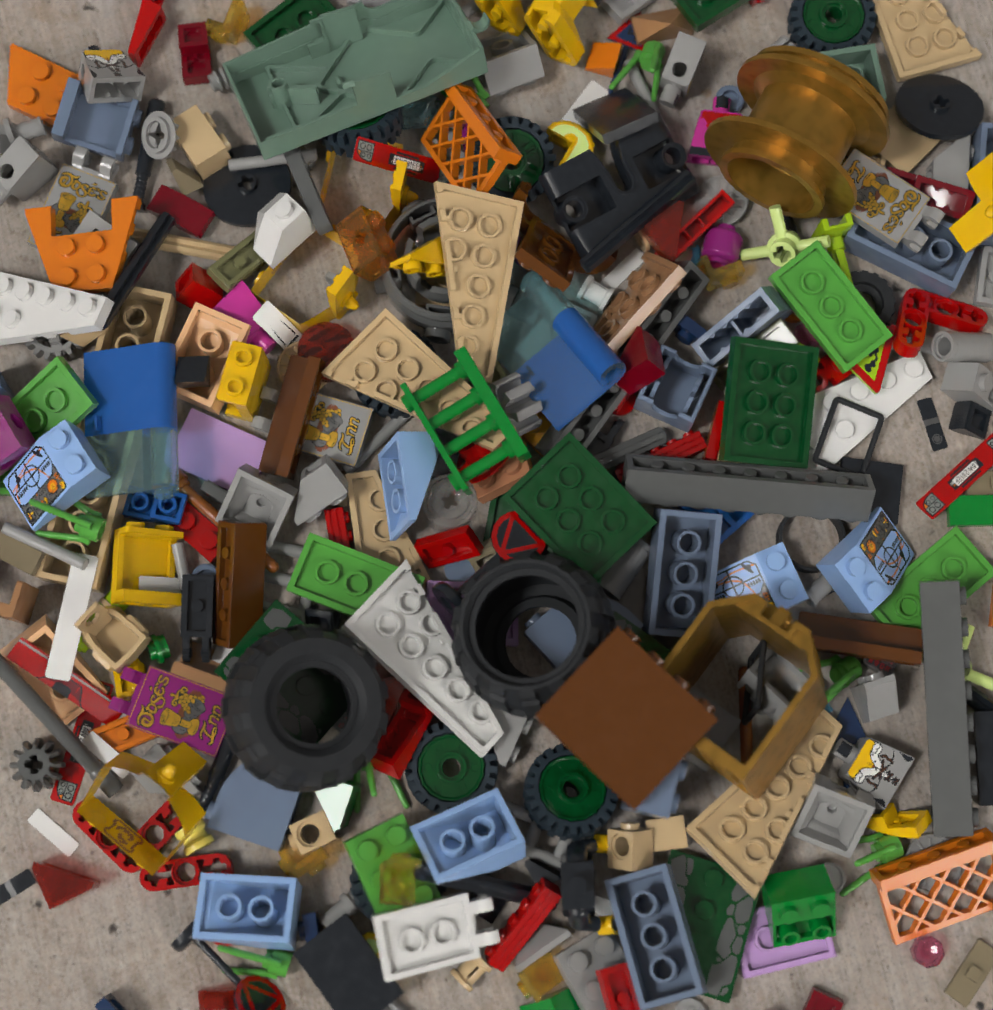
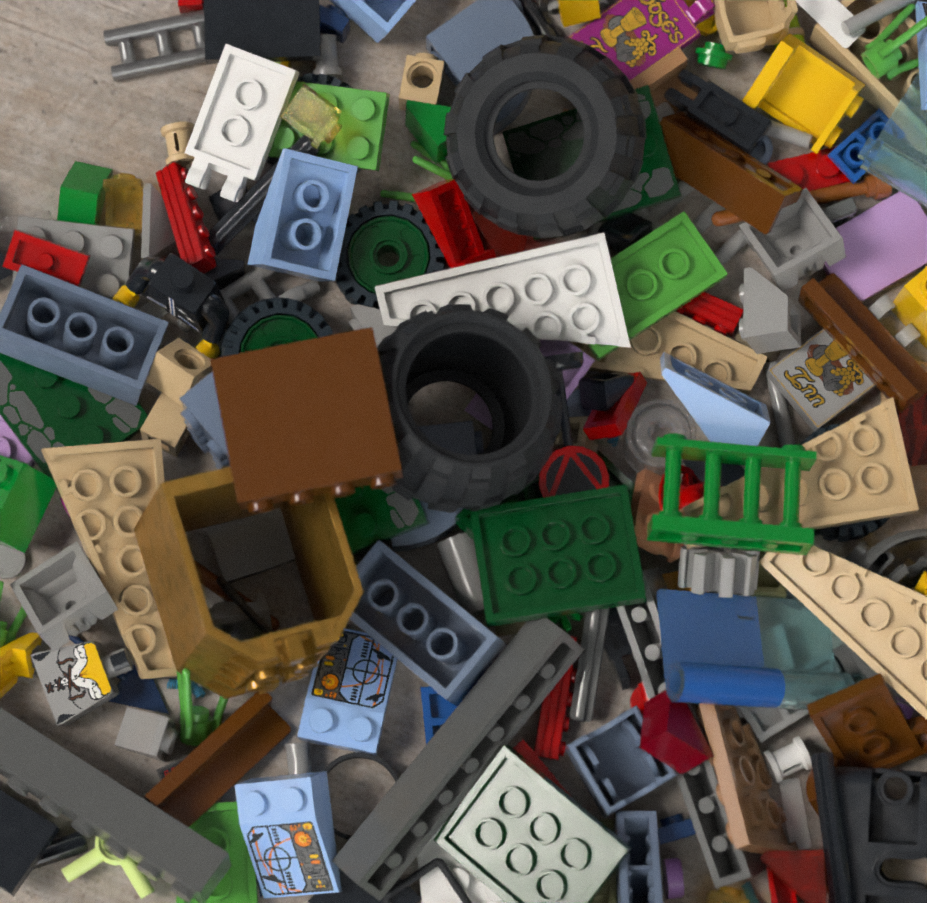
camera: 125 degrees right, 0 degrees up
(161, 584) = (778, 95): white sticker -> none
(311, 864) = (392, 63): clear yellow bracket -> none
(442, 561) = (603, 390): none -> black slope
(717, 313) = (673, 878): none -> medium lavender tile

